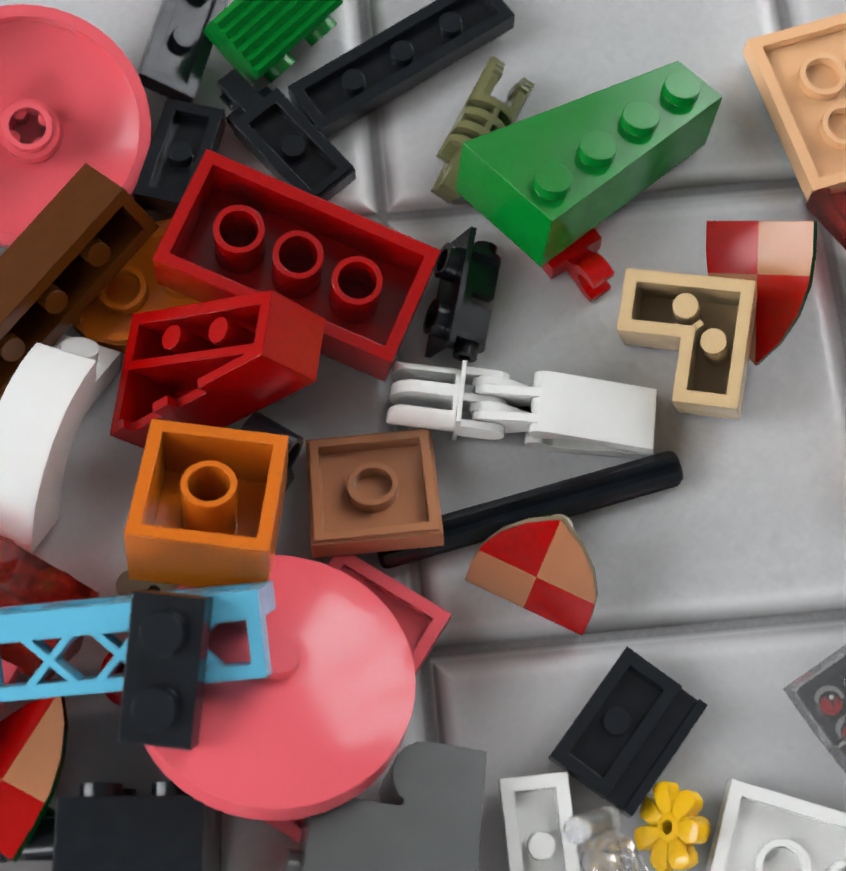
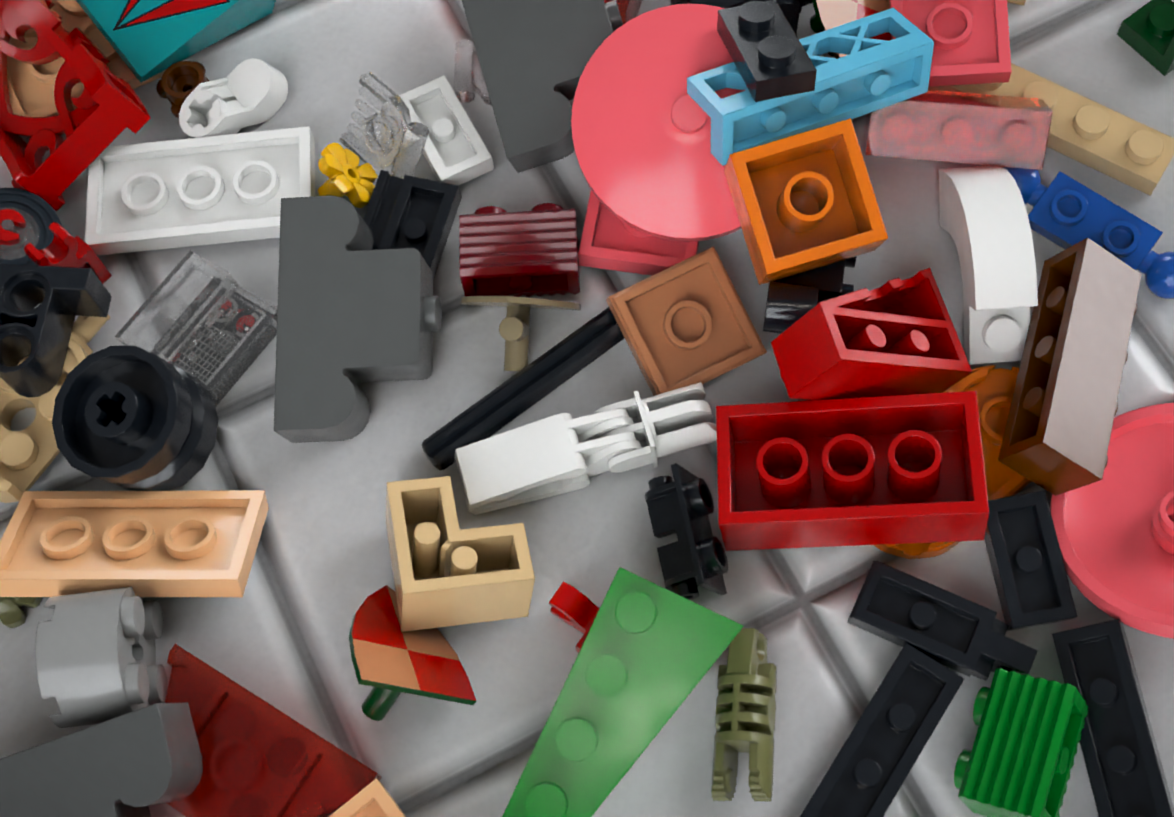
camera: 165 degrees right, 5 degrees down
(510, 649) = (519, 252): none -> dark red brick
(726, 632) = (344, 319): none -> dark grey brick

